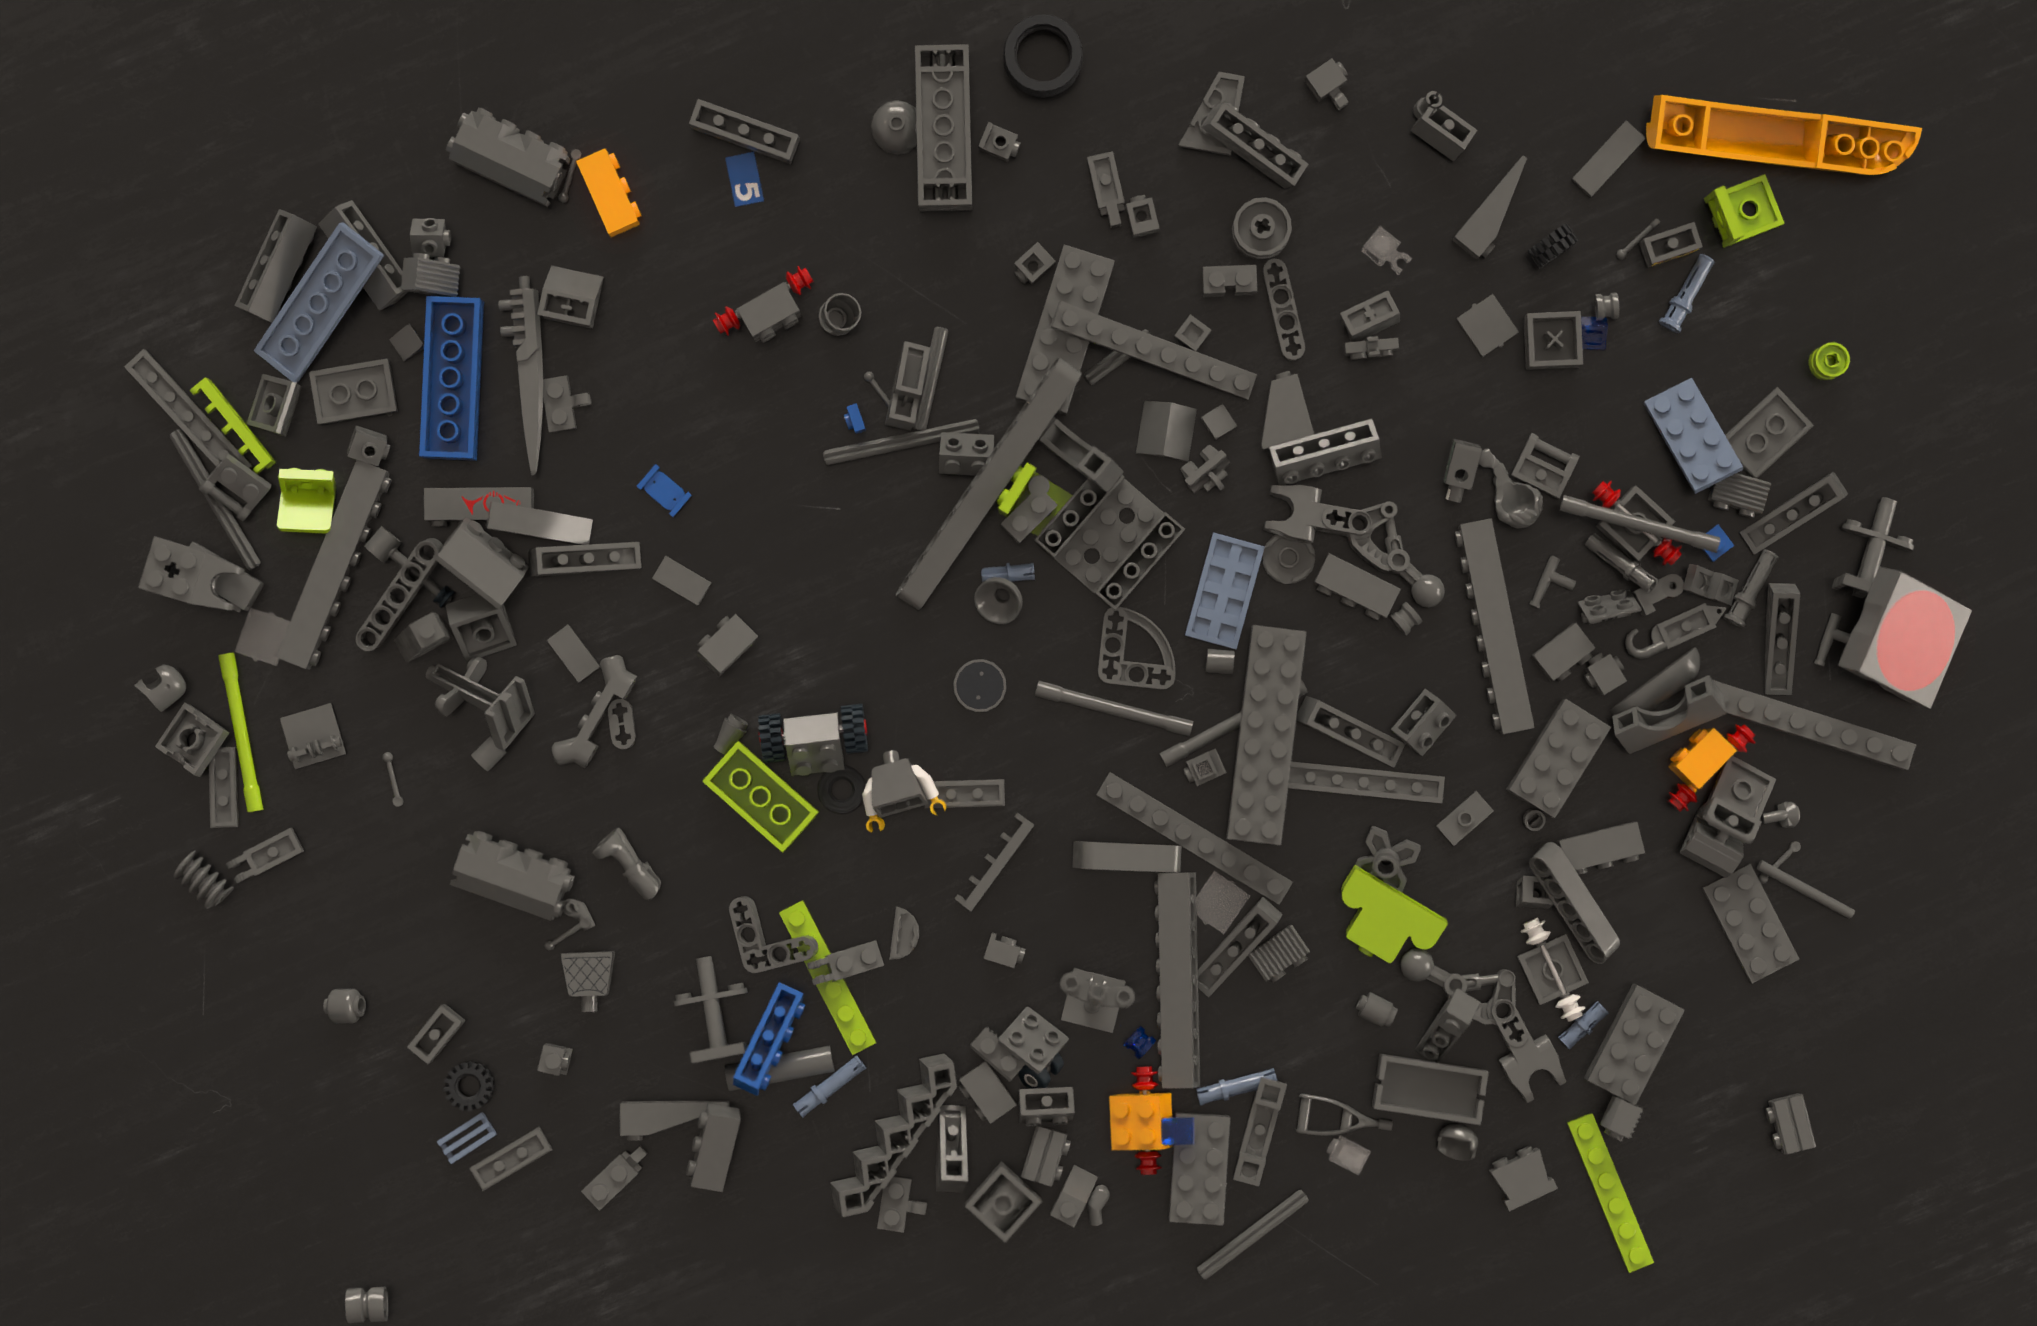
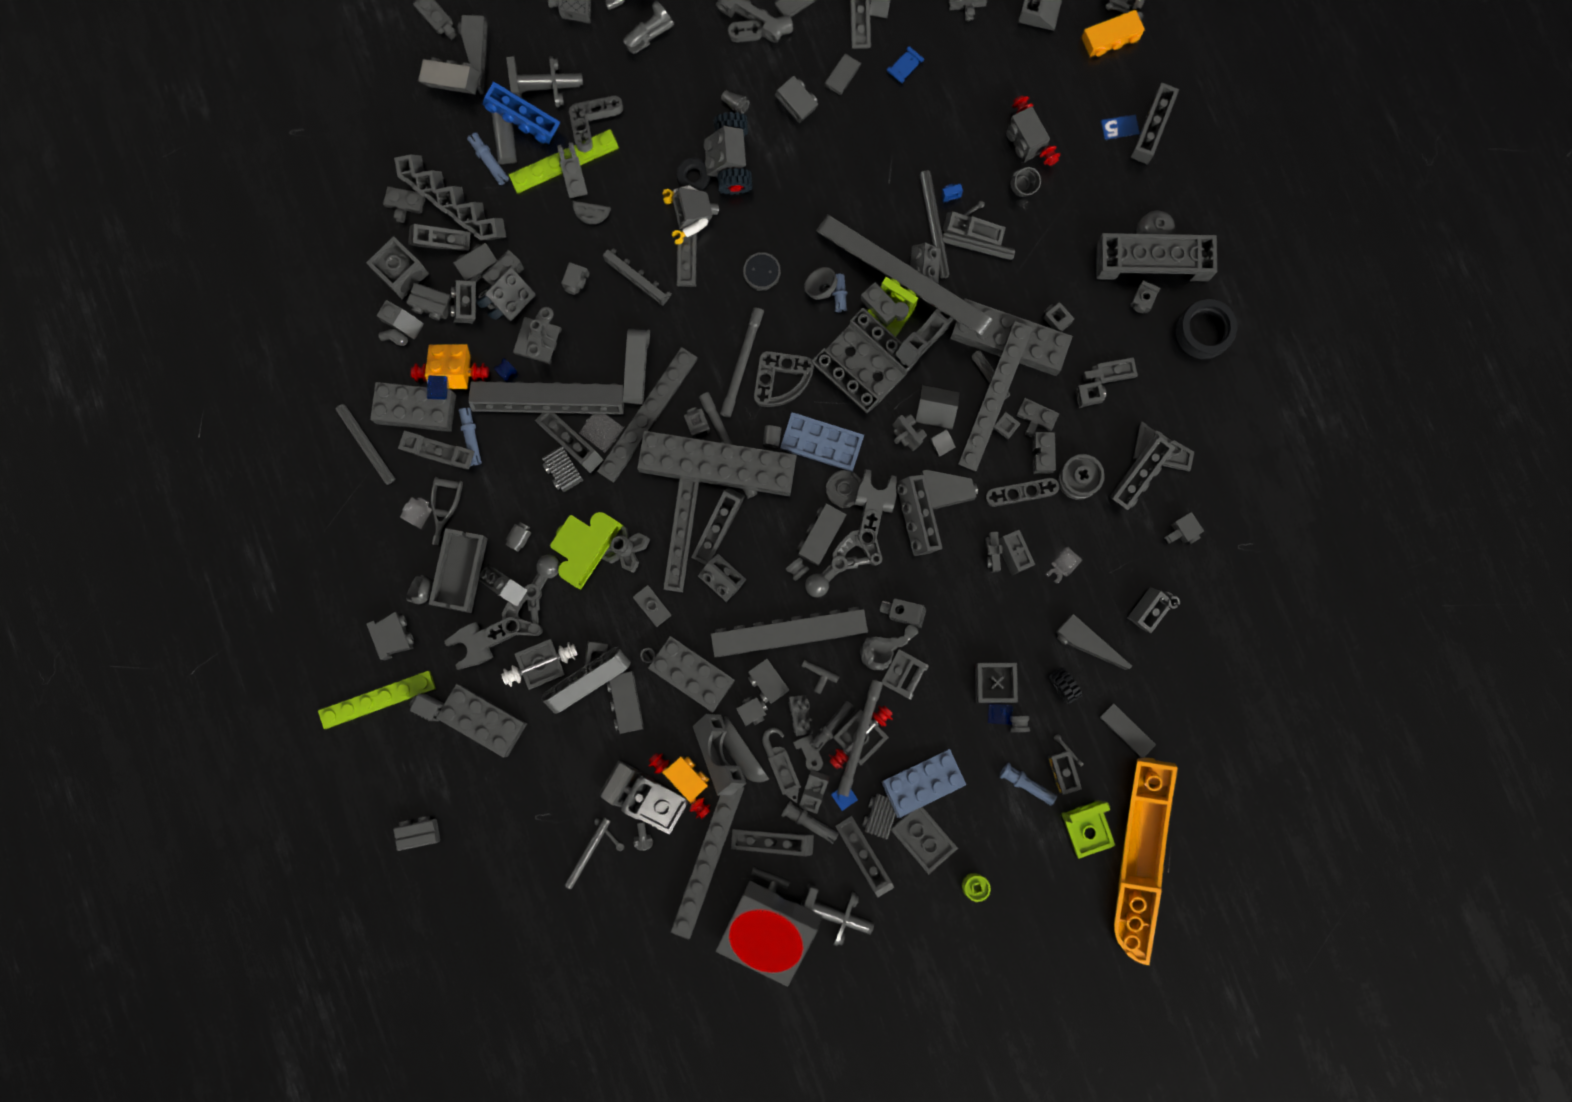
camera: 90 degrees right, 5 degrees down
(760, 796) = (690, 117): lime brick -> none
(1174, 291) = (1037, 416): none -> dark grey plate
(1487, 325) = (1007, 638): dark grey piece -> none
(1583, 1025) = (498, 685): sand blue pin -> none
(1750, 923) = (565, 811): dark grey plate -> none

